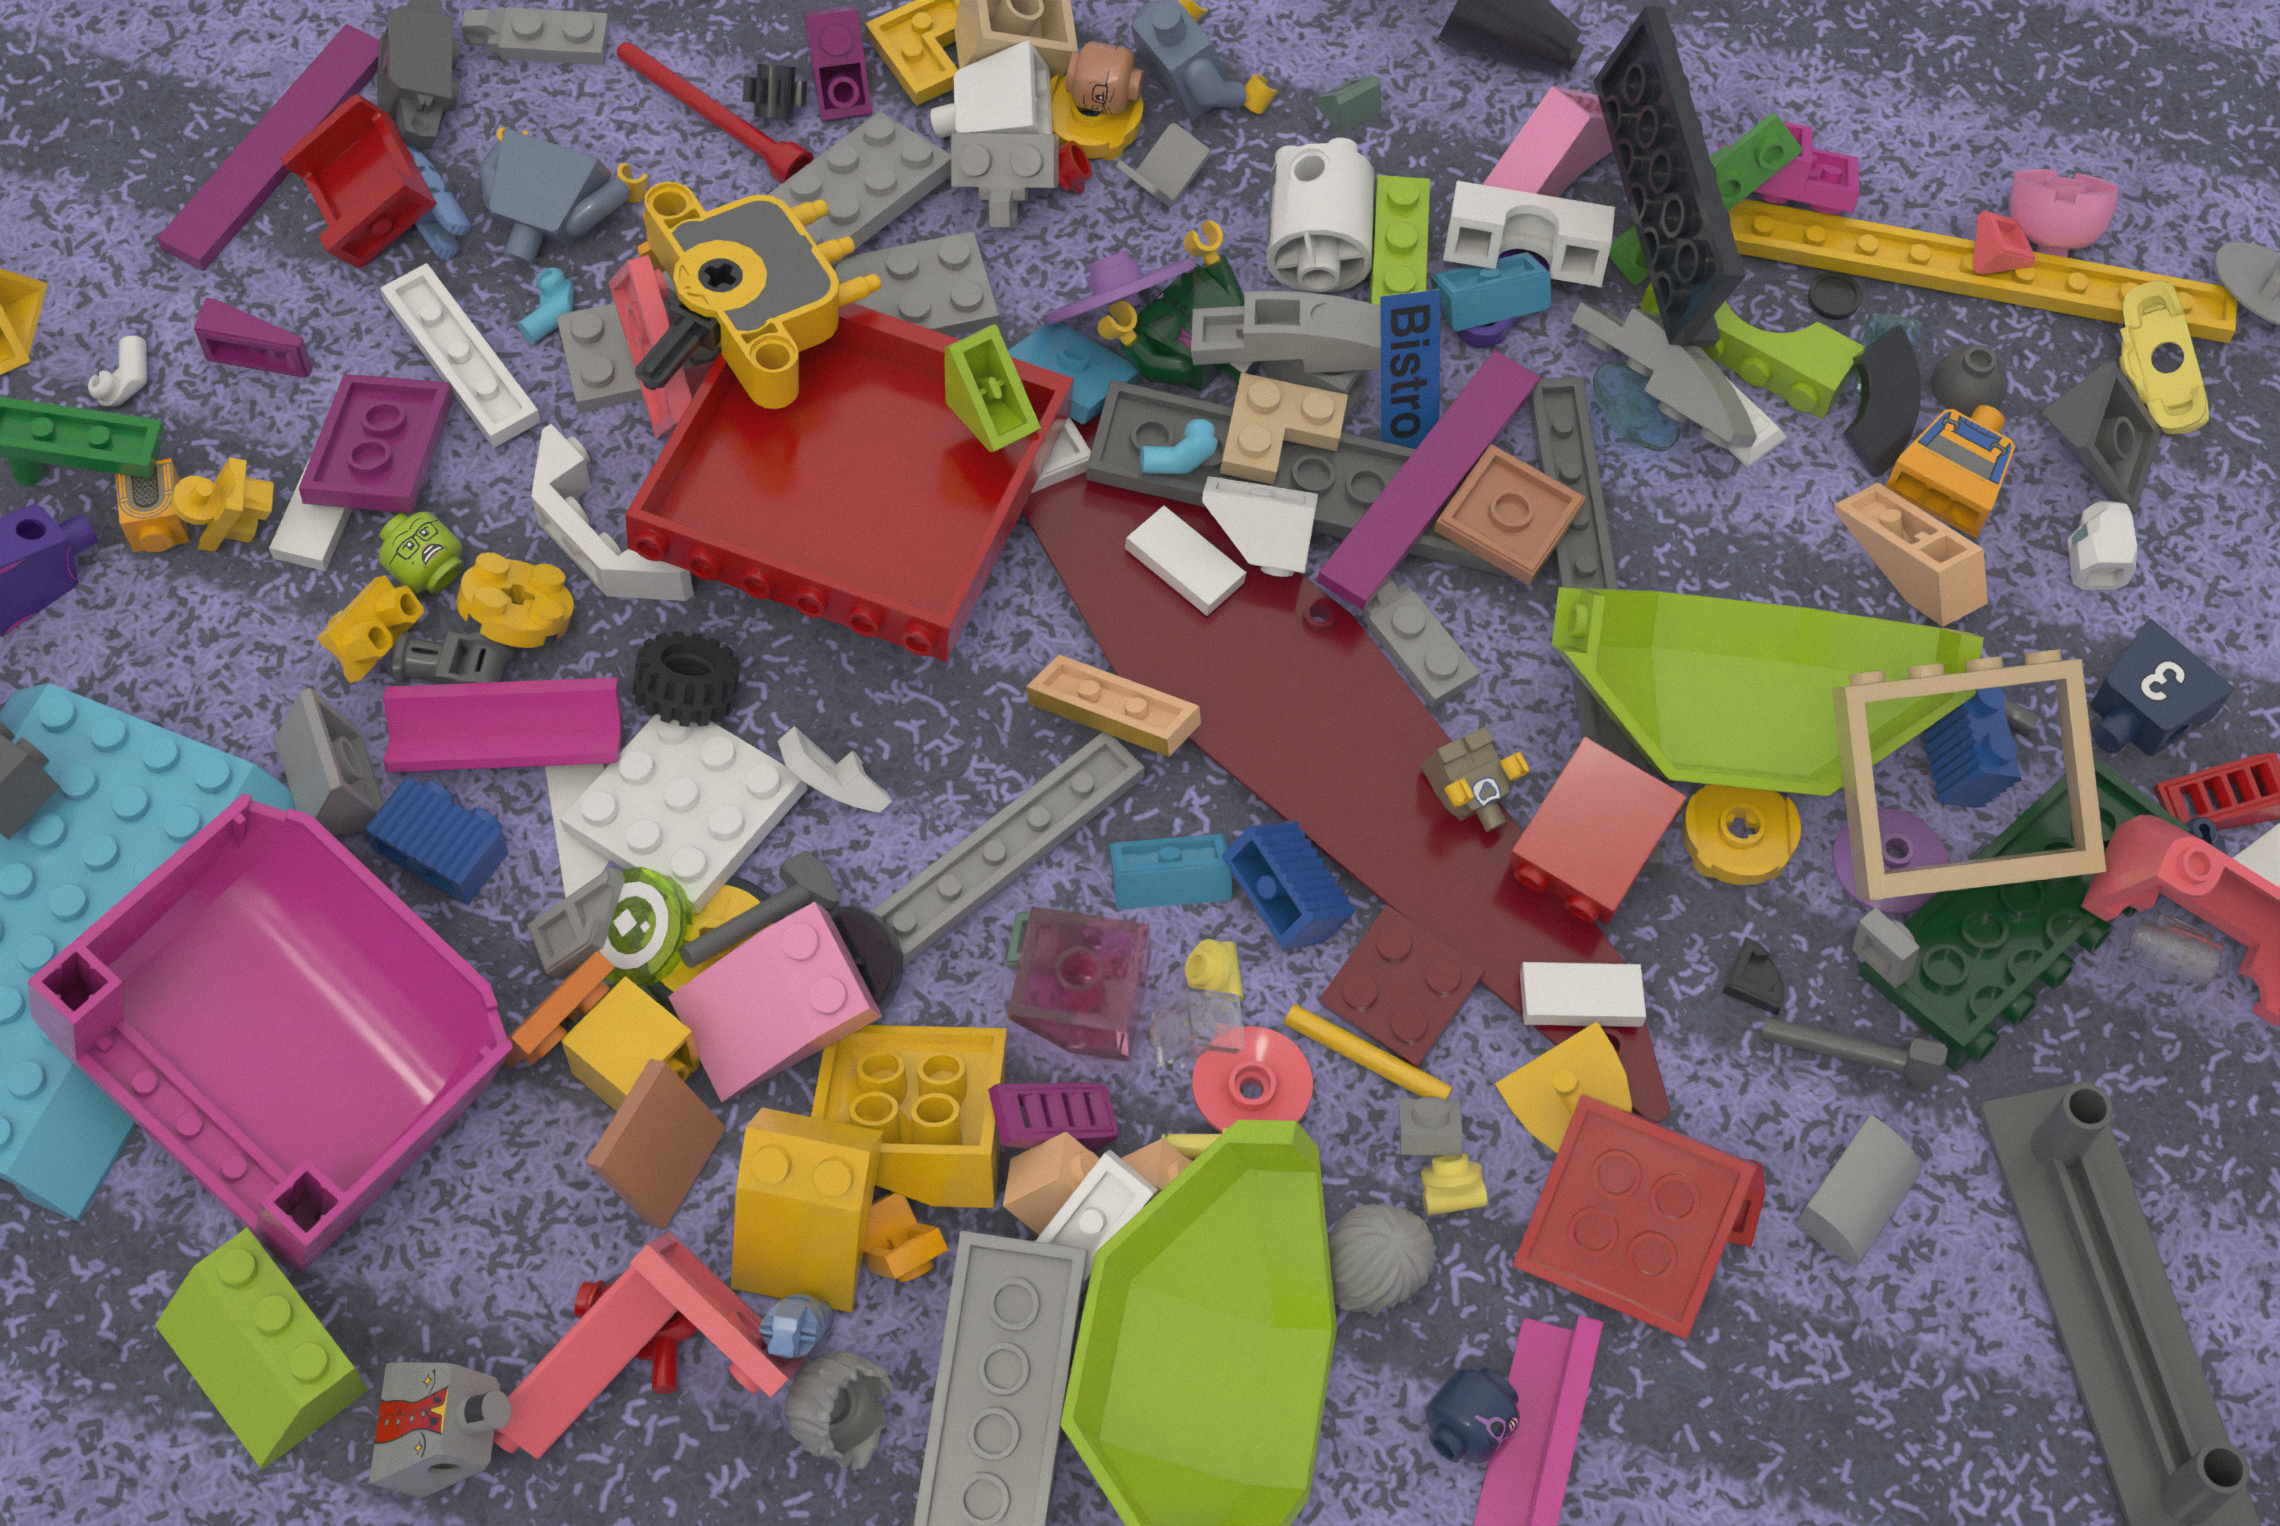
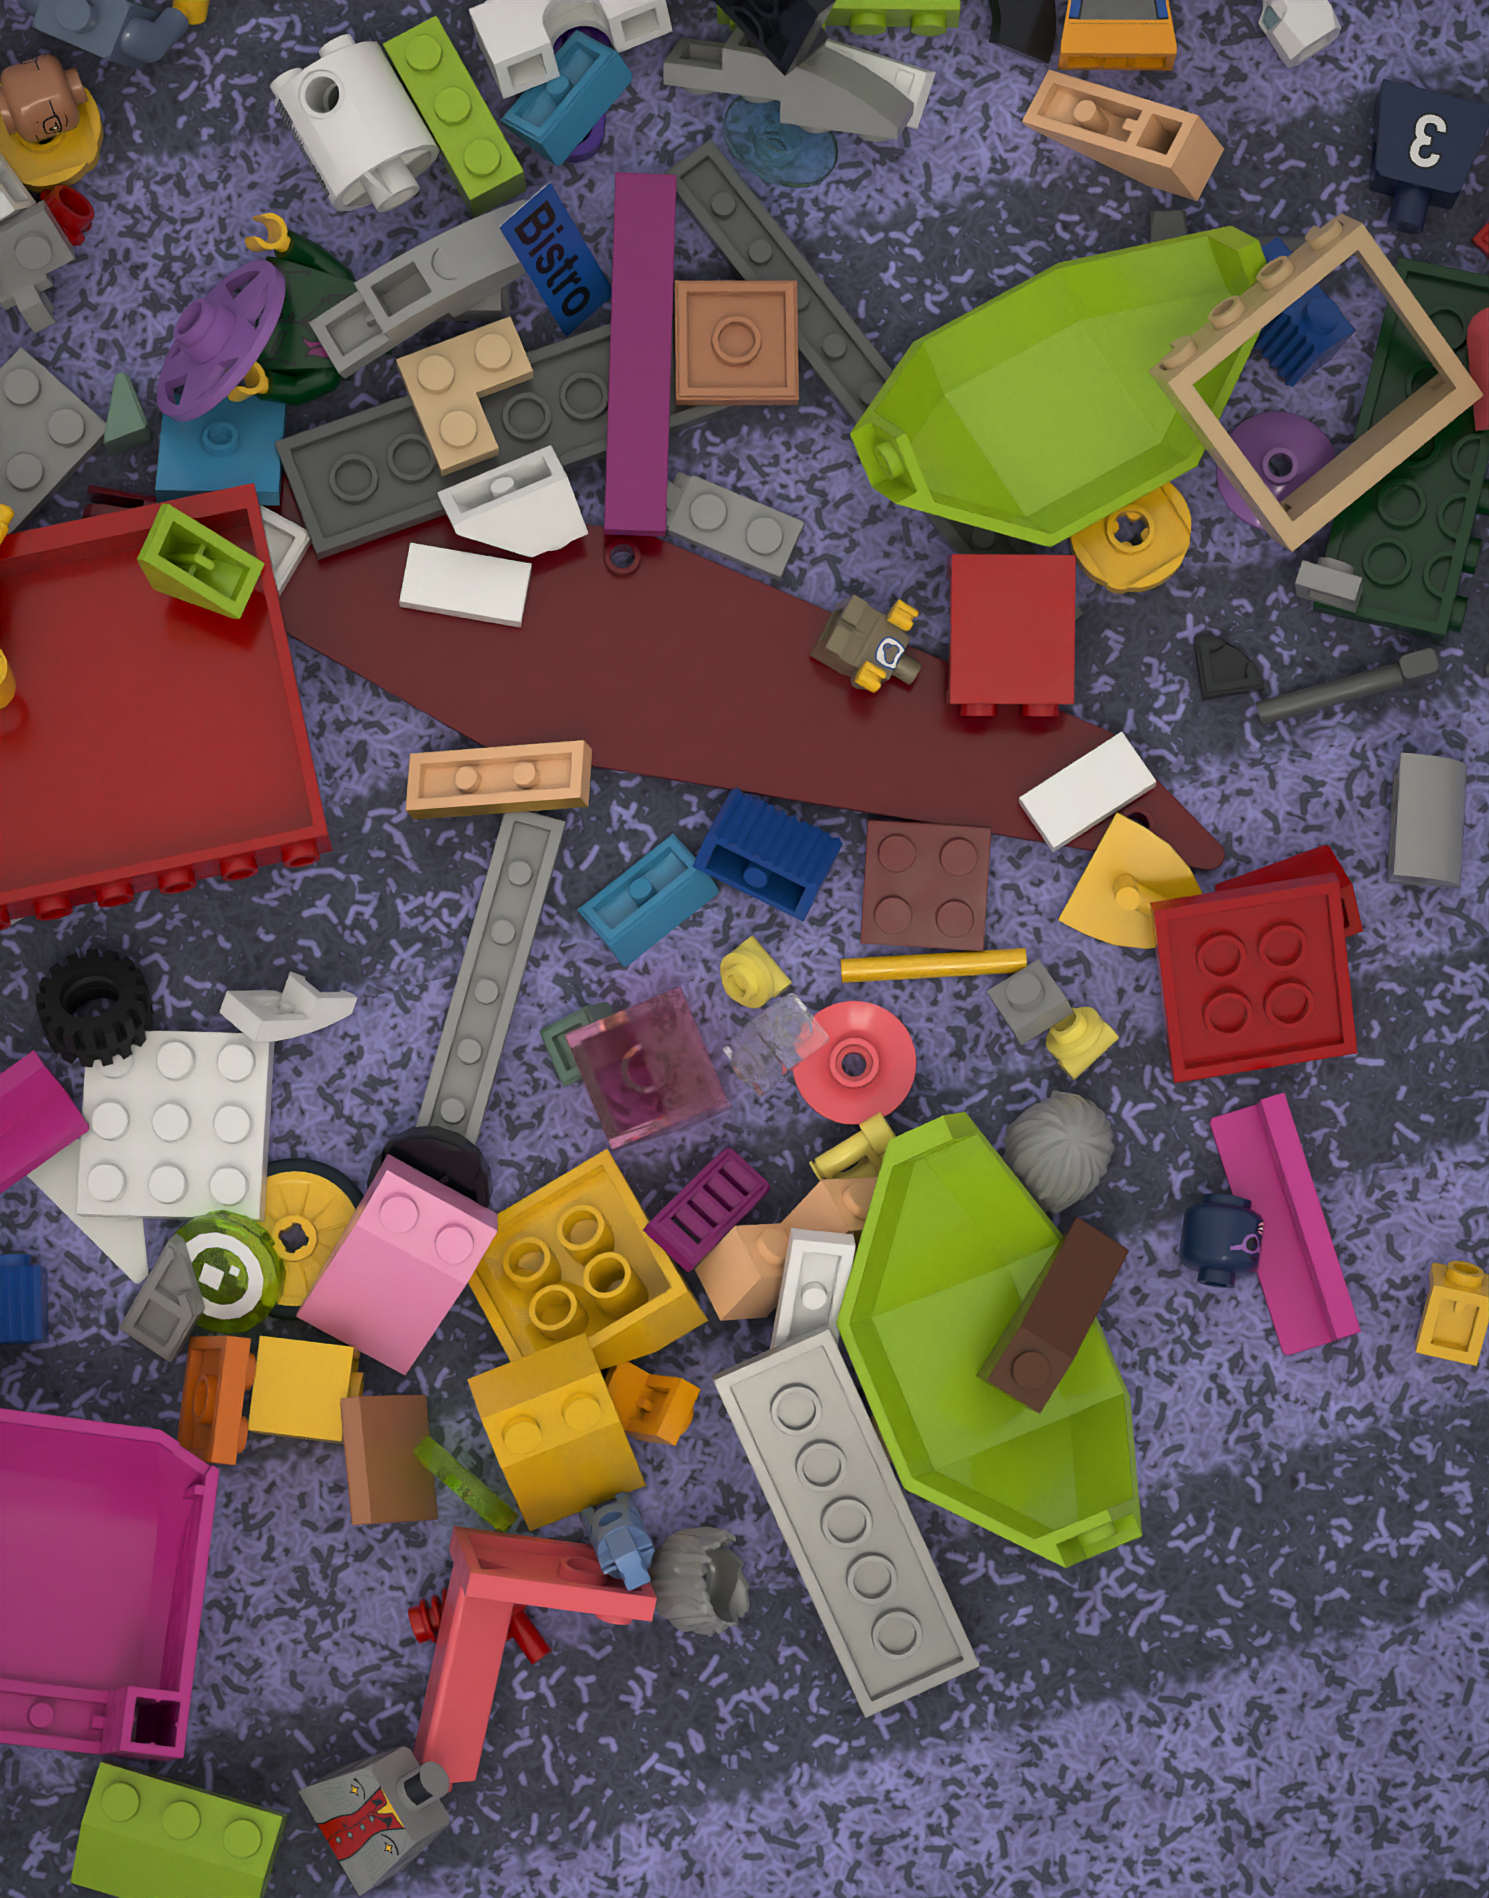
camera: 30 degrees left, 20 degrees up
(702, 1202) = (465, 1484): none -> clear neon green tile
(807, 883) = (341, 1127): dark grey piece -> none
(1014, 310) = (126, 419): none -> sand green slope
(1169, 165) = (160, 151): light grey bracket -> none
(1183, 457) = (400, 490): medium azure arm -> none
(1284, 1380) = (1054, 1317): none -> reddish brown slope

